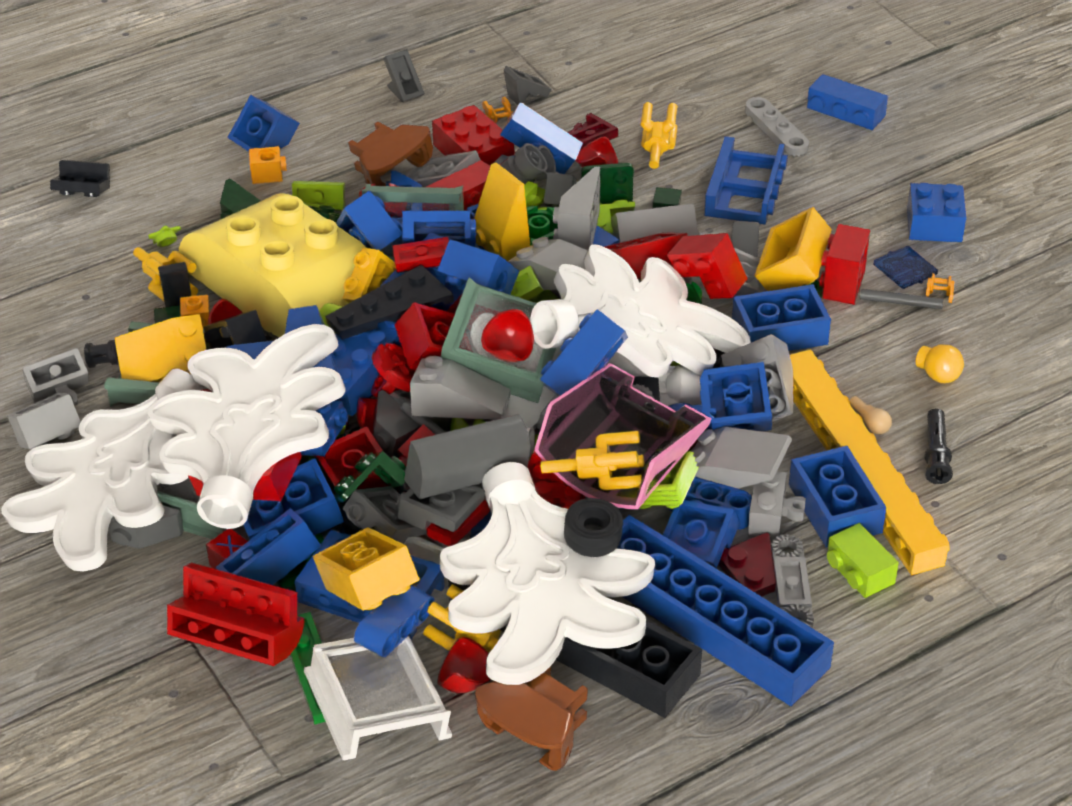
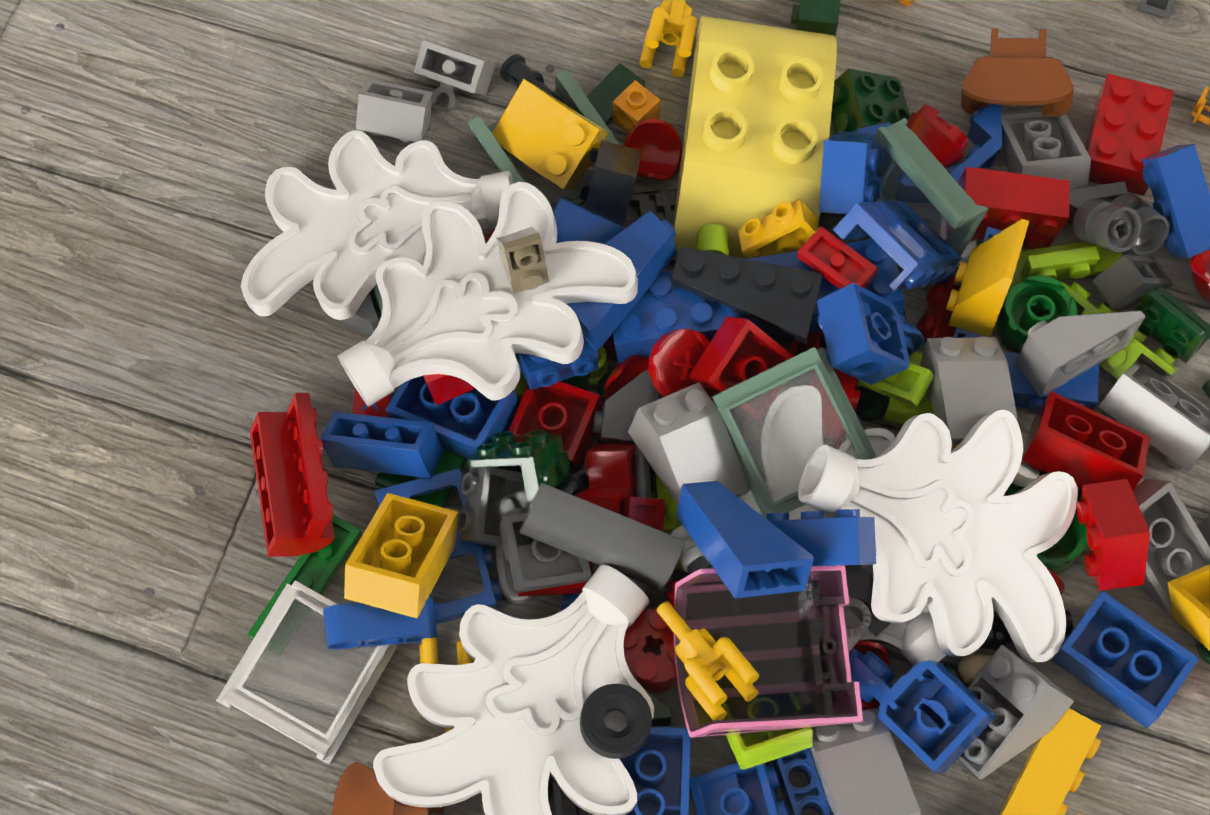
camera: 50 degrees right, 25 degrees up
(174, 283) = (649, 62): black tile -> none
(253, 364) = (523, 259): none -> dark tan slope
(320, 193) = (906, 63): lime tile -> none
(464, 667) = (396, 721): red helmet -> none
(509, 336) = (775, 449): red helmet -> none
(548, 380) = (741, 543): none -> blue slope

